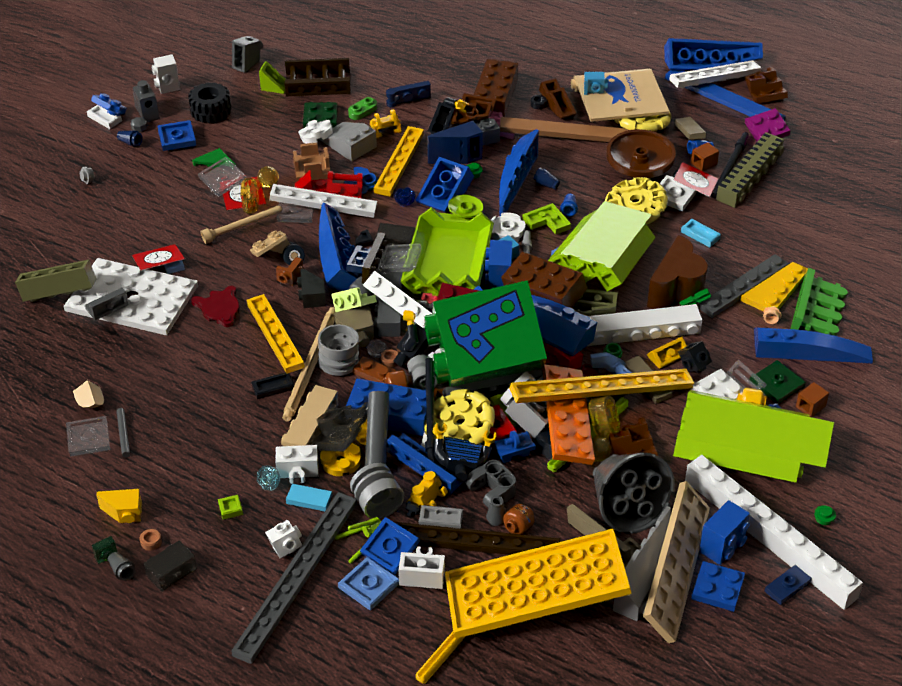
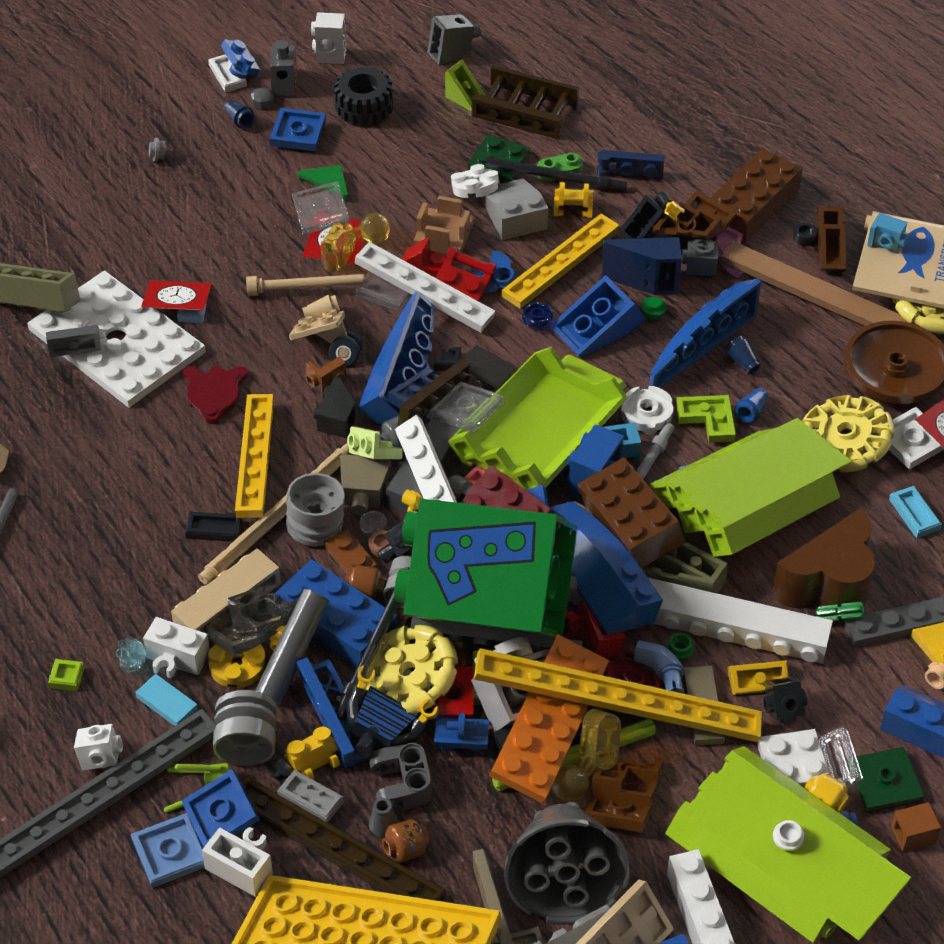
camera: 25 degrees right, 5 degrees up
(261, 233) = (320, 306): none -> tan cone
(363, 112) = (602, 182): none -> black bar
(465, 206) = (607, 358): lime dish -> none
(752, 424) = (788, 835): none -> white plate

